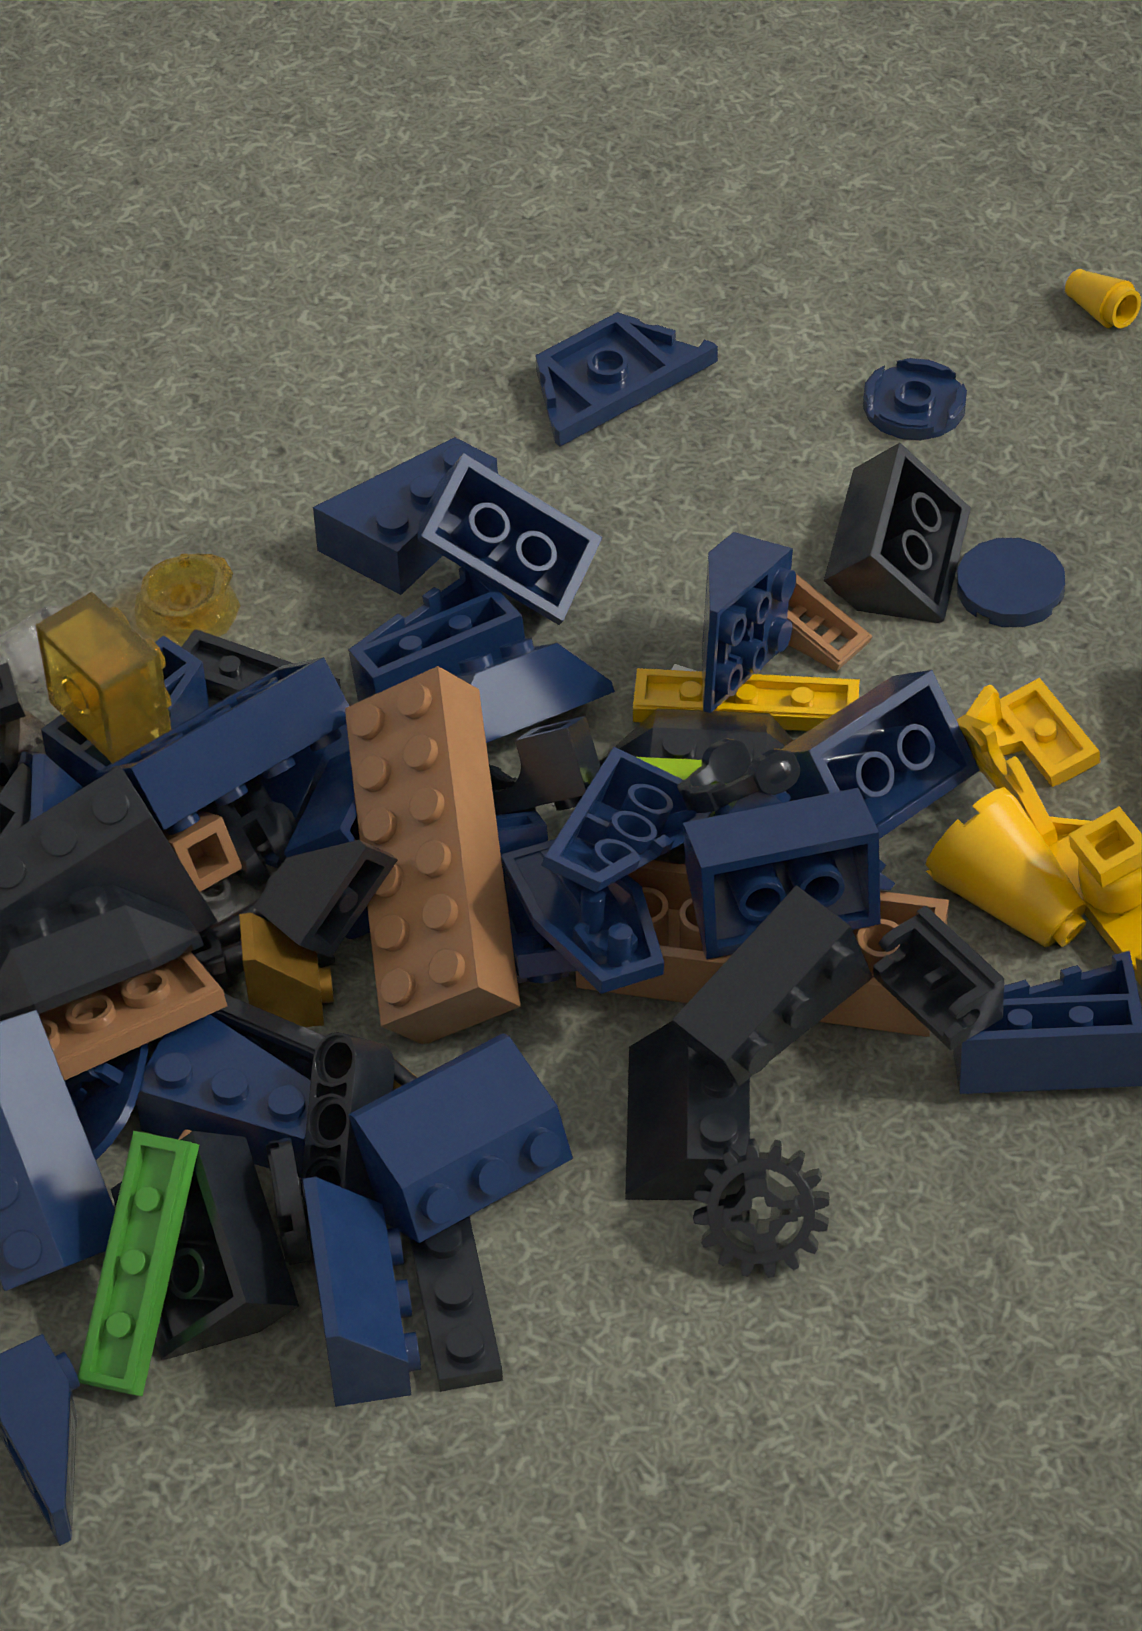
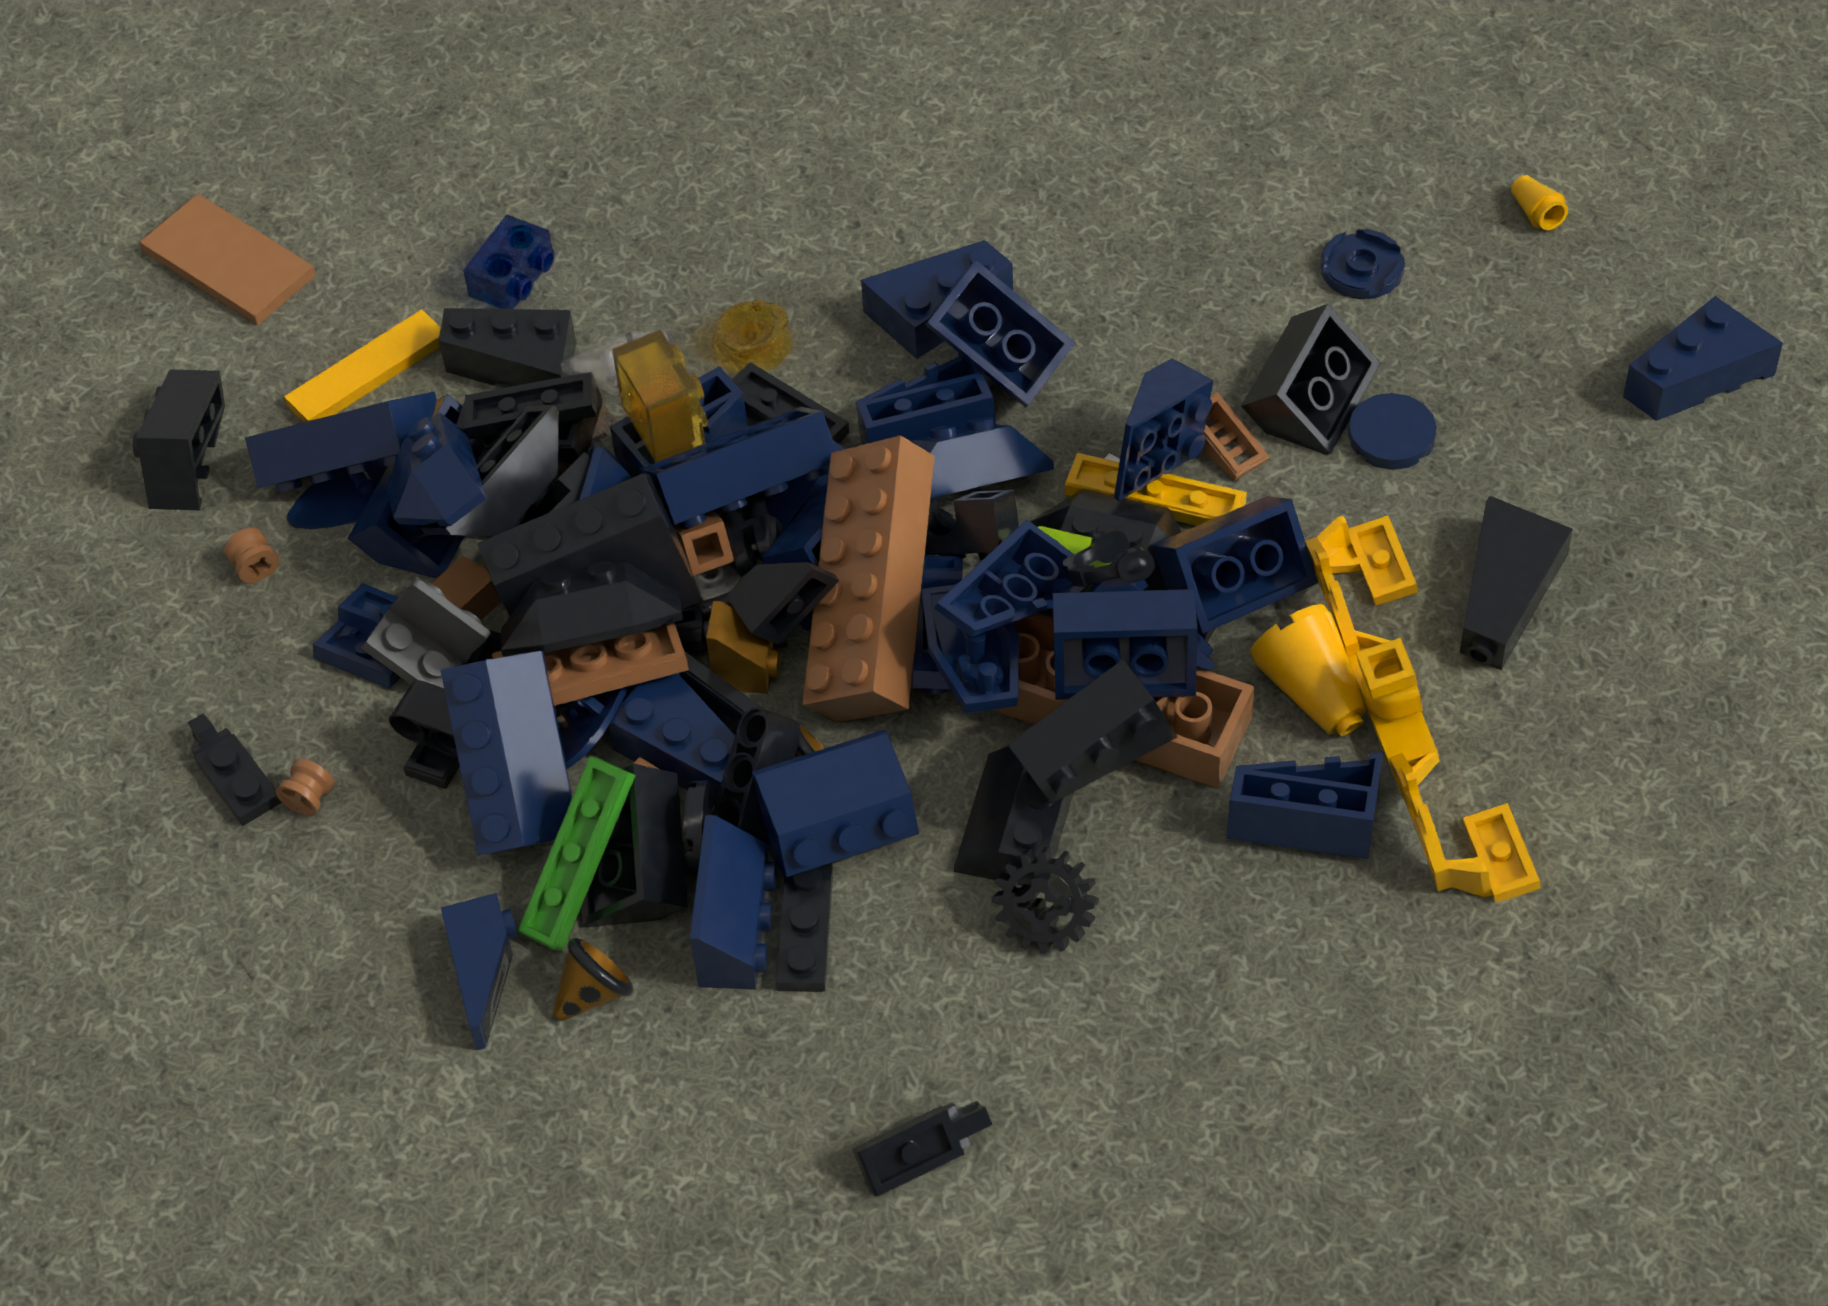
camera: 15 degrees right, 5 degrees up
(190, 1427) = (588, 981): none -> hat
(612, 371) = (1129, 201): dark blue wing -> none
(684, 1549) = (919, 1145): none -> black hinge
(940, 979) = (1223, 749): black hinge -> none

